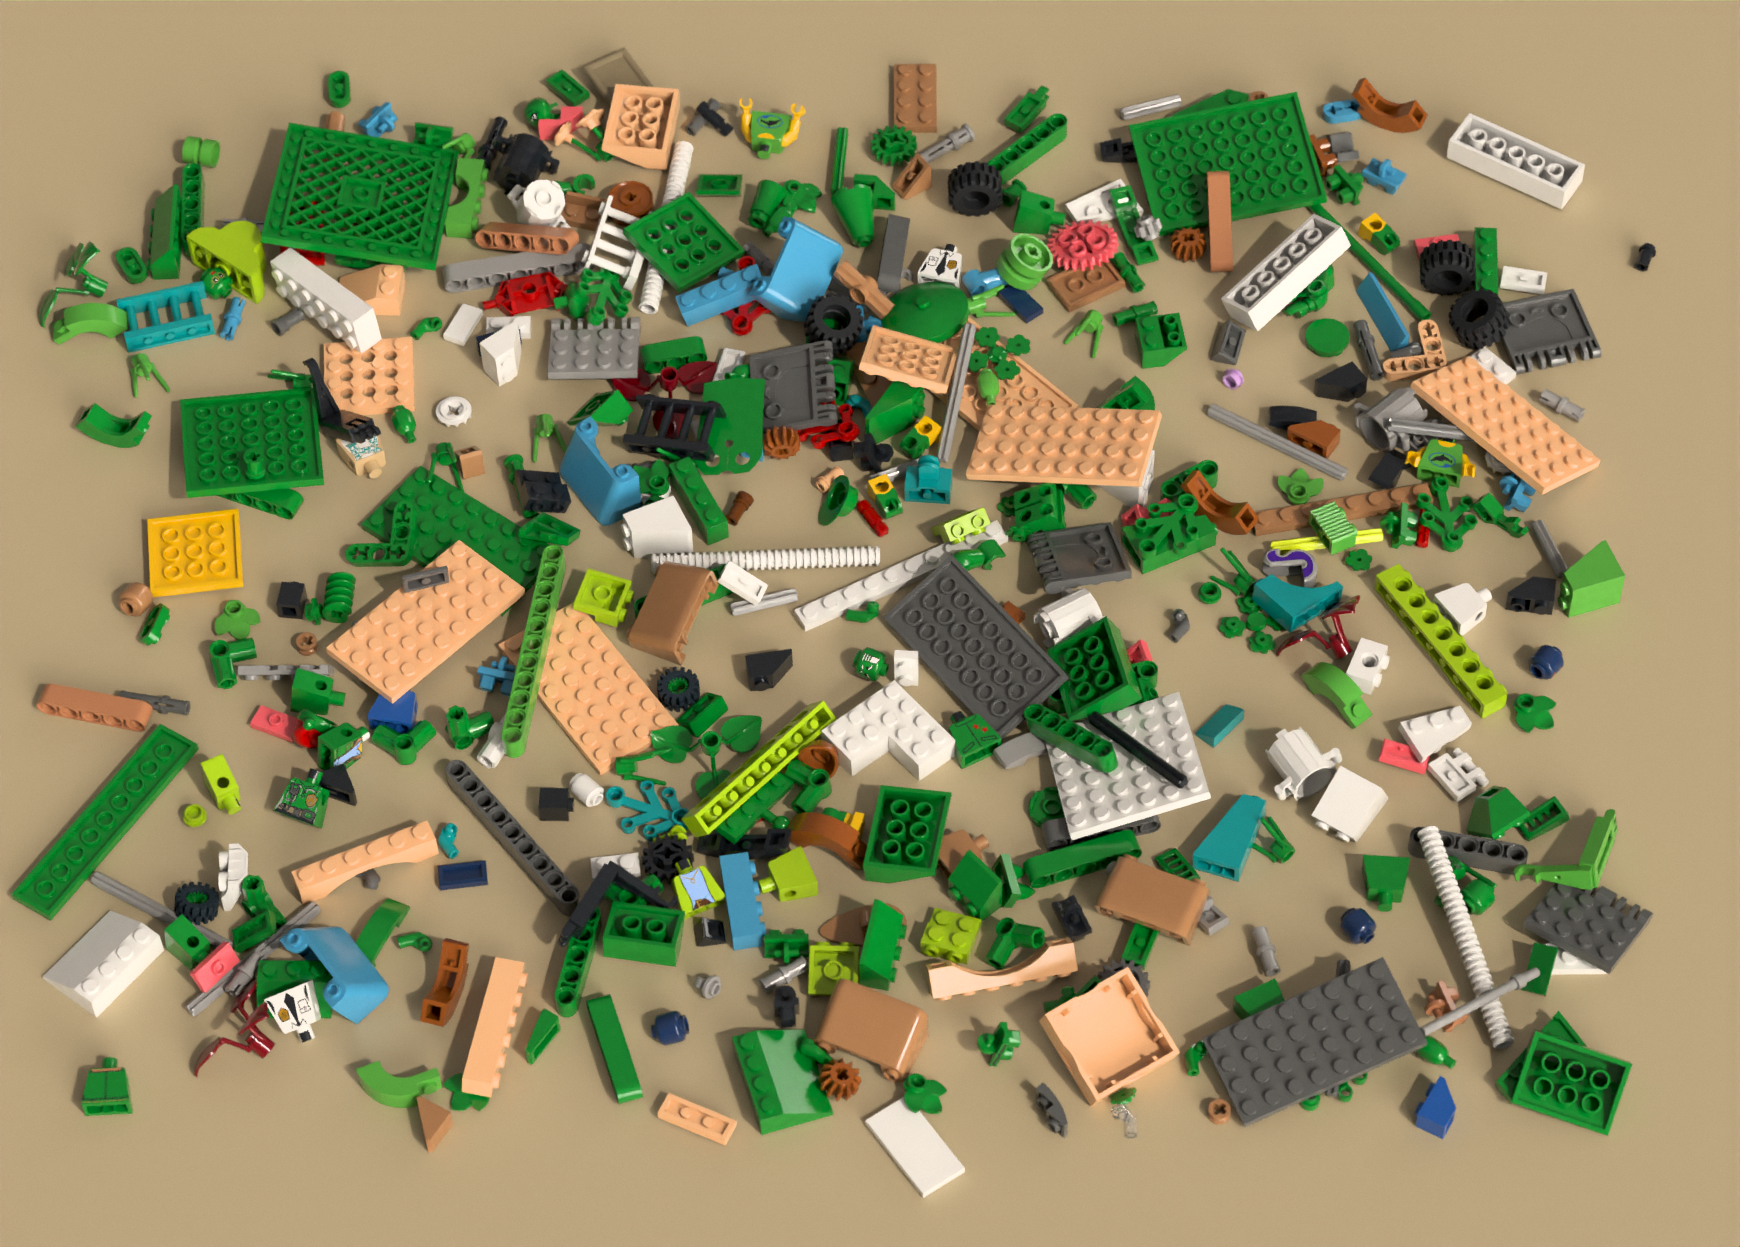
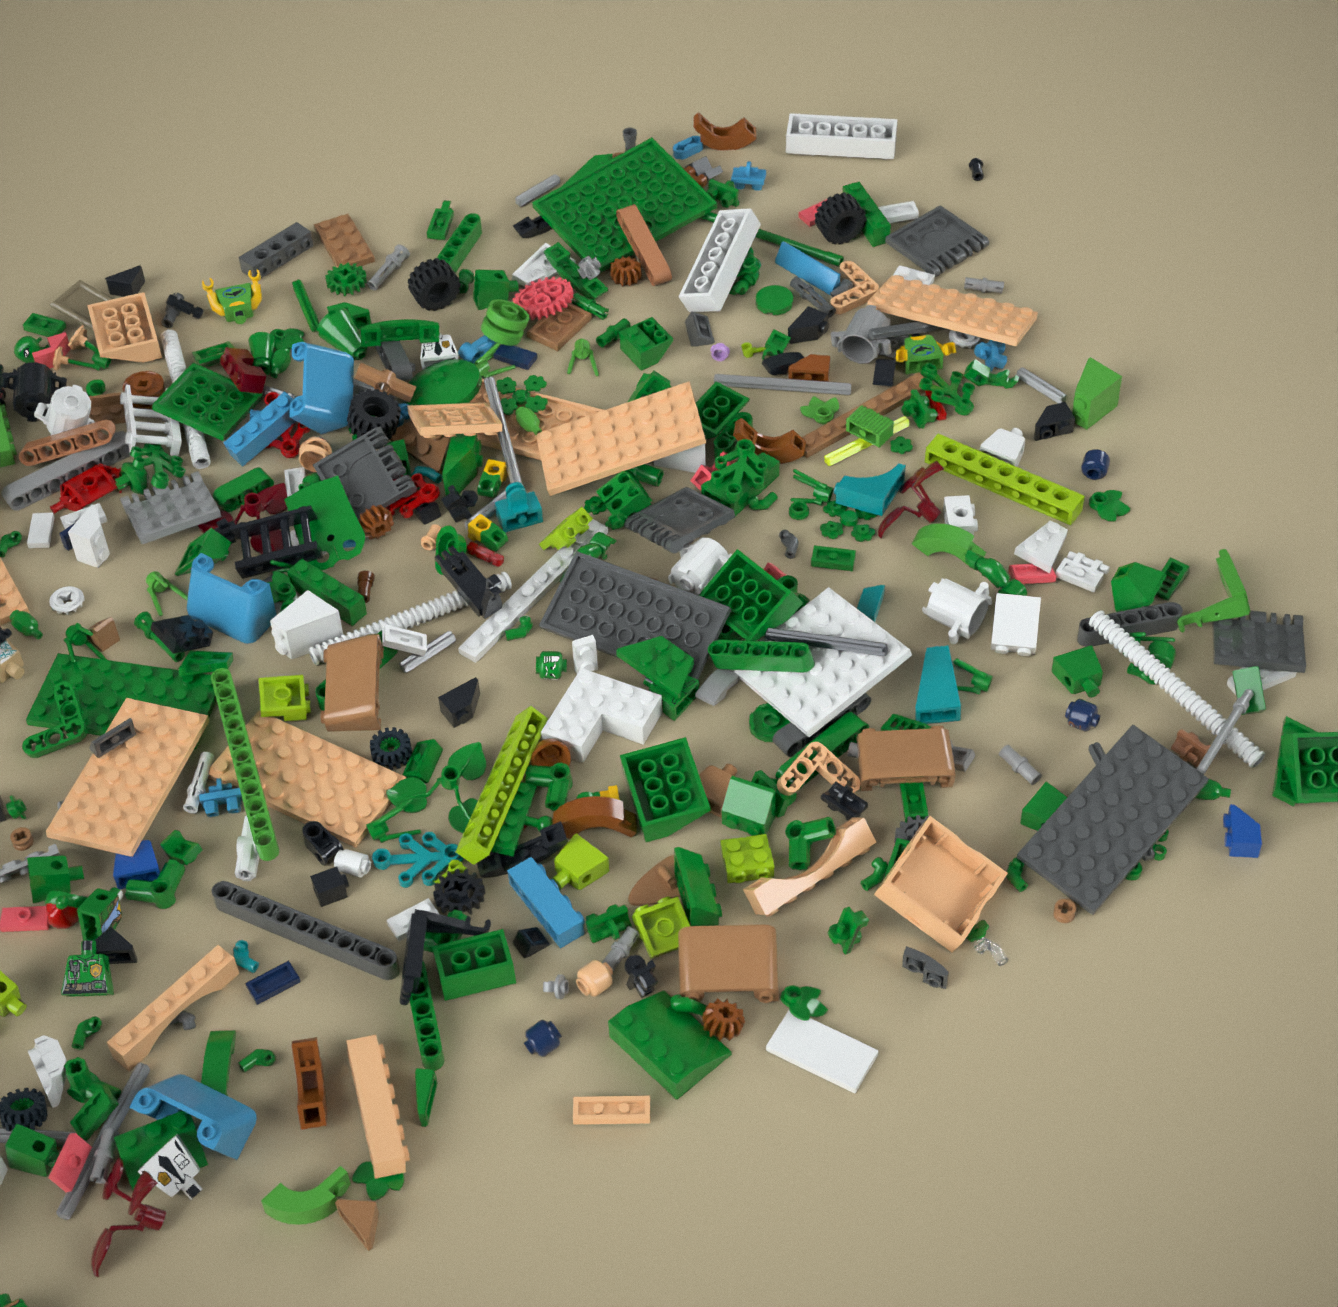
camera: 25 degrees left, 5 degrees down
(281, 851) = (85, 1030): none -> green arm
(338, 597) = (34, 787): green piece -> none
(436, 710) = (180, 849): none -> green bracket
(464, 730) = (210, 854): green piece -> none
(484, 656) = (198, 783): none -> white pin
(569, 760) = (322, 844): none -> black piece
(614, 1049) = (500, 1079): green beam -> none
(630, 395) = (224, 529): none -> black gear
(671, 67) = (126, 282): none -> black slope
(695, 889) = (501, 906): torso -> none
(732, 215) = (240, 370): none -> dark red arch
(745, 992) = (594, 978): none -> light nougat head
(760, 339) = (313, 451): none -> light nougat helmet
(835, 547) = (479, 592): none -> black hinge
(839, 84) = (276, 250): none -> dark grey brick
(907, 232) = (399, 330): none -> green slope
(914, 178) = (377, 295): medium nougat slope -> none
(972, 705) = (660, 663): none -> green wing
(1066, 872) = (819, 764): none -> light nougat beam
(1176, 571) = (763, 504): none -> green arm
(1184, 447) = (718, 408): none -> green slope
(1213, 659) = (833, 558): none -> green plate
(1265, 389) = (748, 351): none -> lime hand
(1279, 78) = (629, 138): none -> dark grey pin
(1291, 563) = (852, 464): light grey animal -> none
(1296, 392) = (775, 344): none -> green plate
(1361, 746) = (995, 574): none -> green piece
(1379, 234) = (771, 216): leg -> none
(1485, 330) = (891, 255): black tyre -> none

